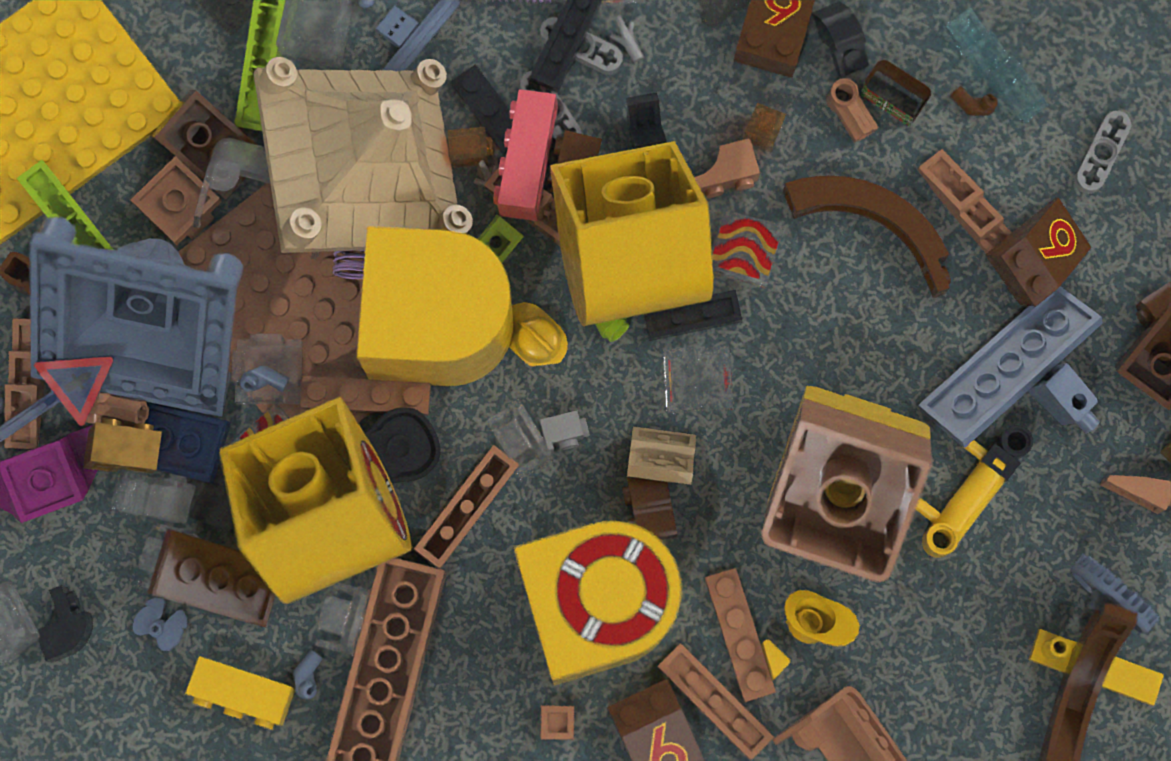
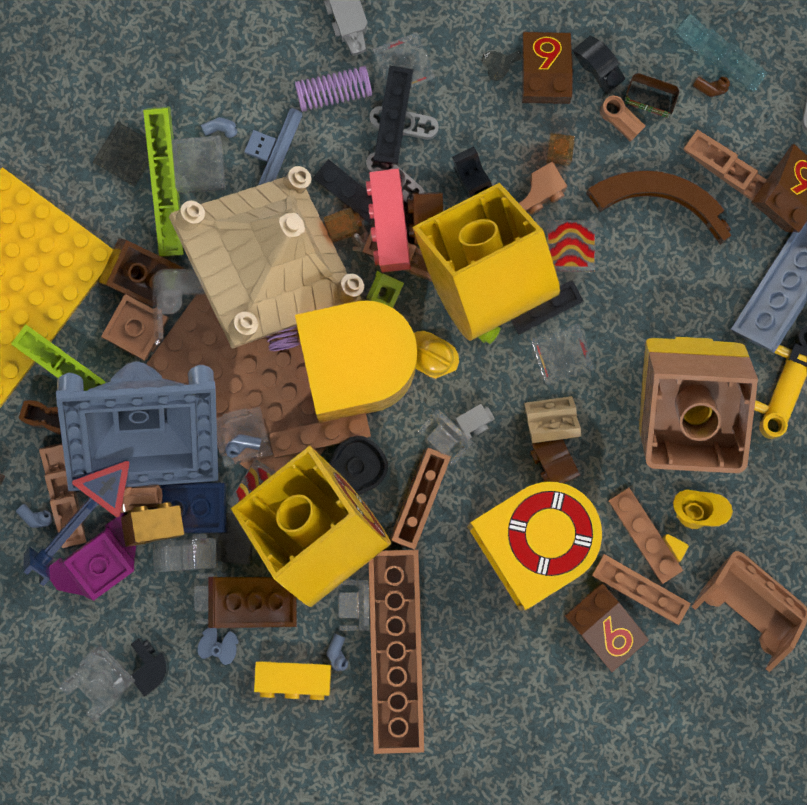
camera: 15 degrees left, 5 degrees up
(557, 722) = (530, 636): nougat plate -> none
(627, 39) = (438, 108): light grey bar -> none

